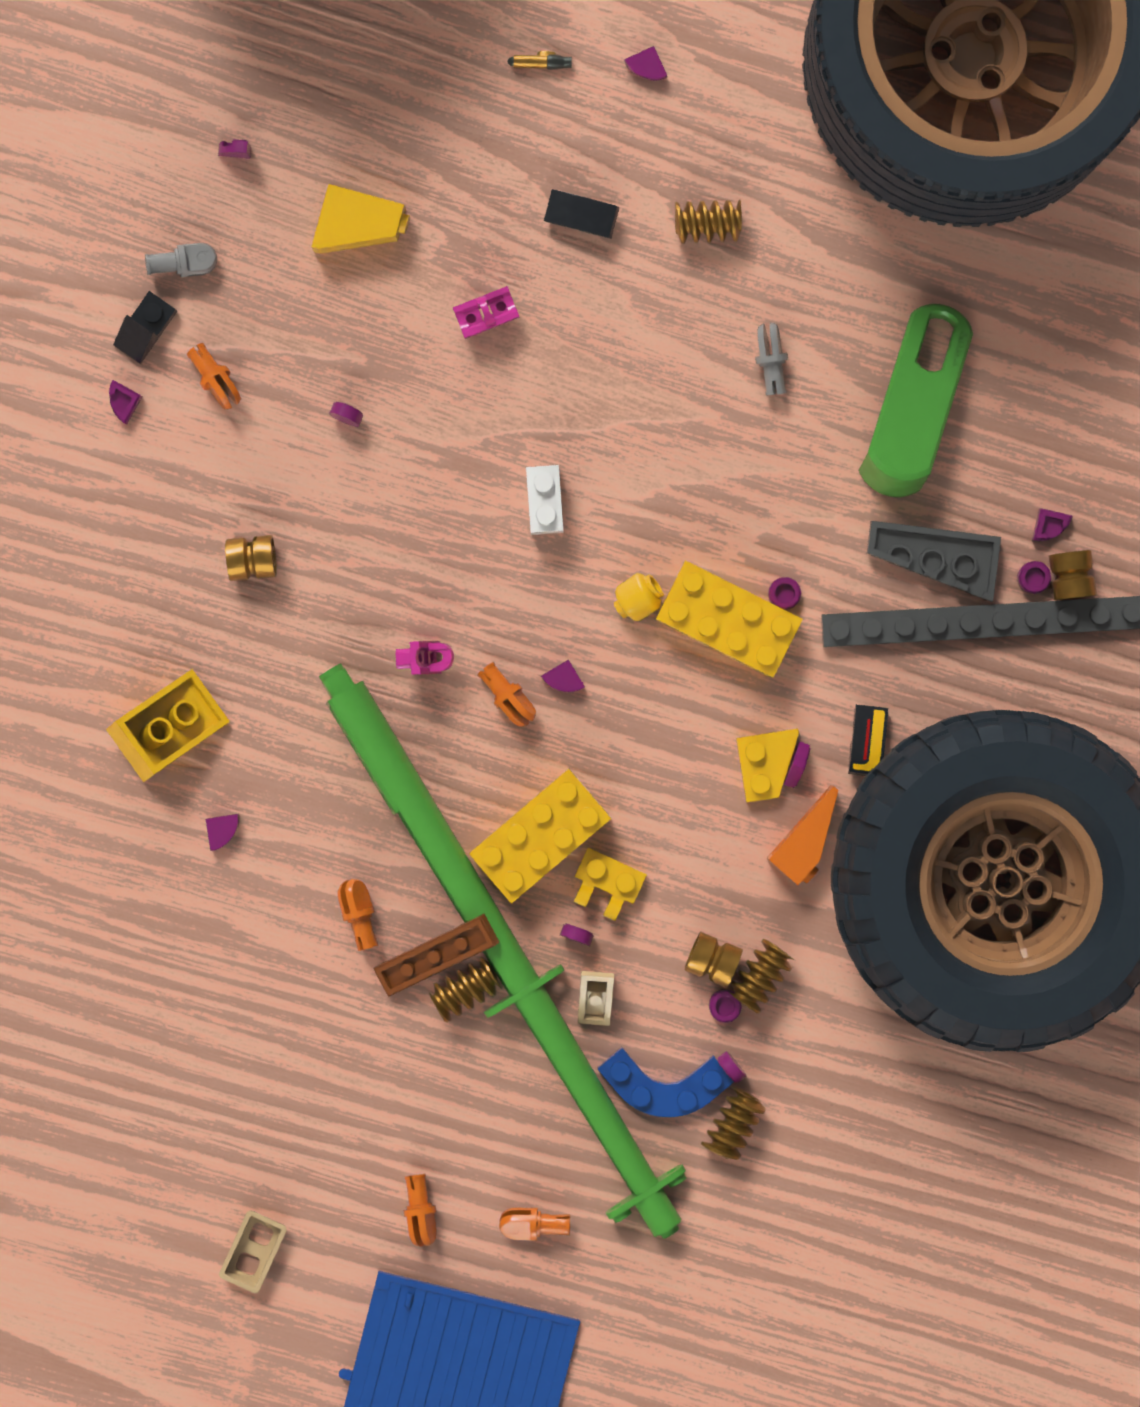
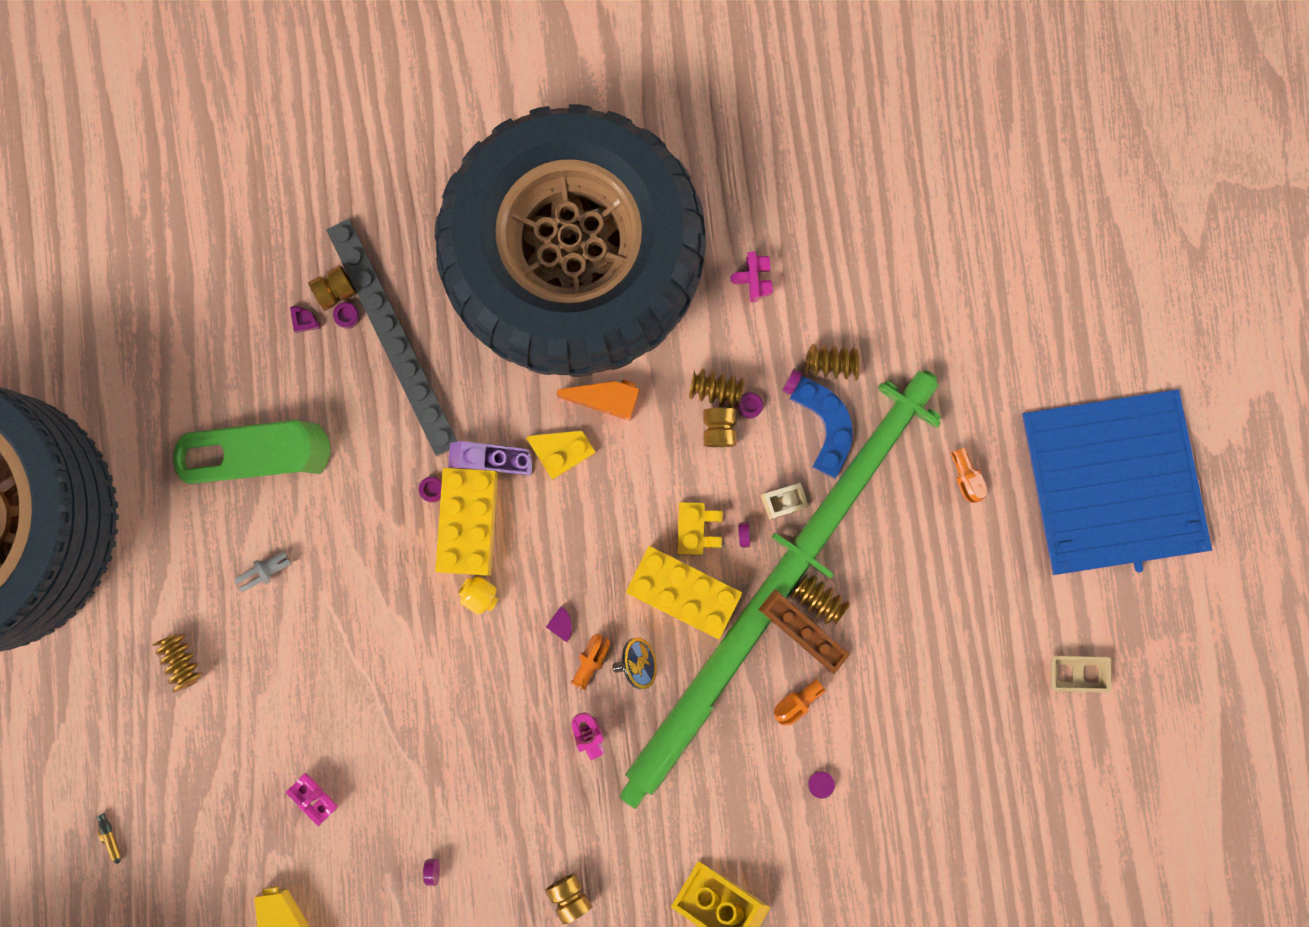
camera: 115 degrees left, 5 degrees down
(221, 830) = (781, 832): magenta tile -> none
(255, 898) = (821, 784): none -> magenta tile
(420, 1212) = (996, 562): orange arm -> none
(481, 748) = (637, 663): none -> shield
(544, 499) = (434, 695): white brick -> none
(581, 214) = (210, 758): black slope -> none
(646, 65) = (80, 757): magenta tile -> none
(791, 677) = (490, 457): none -> medium lavender slope
(797, 765) = (553, 427): magenta tile -> none
(867, 739) = (512, 384): slope -> none
(888, 1084) = (754, 265): none -> dark pink hips
(946, 556) = (356, 386): dark grey wing -> none

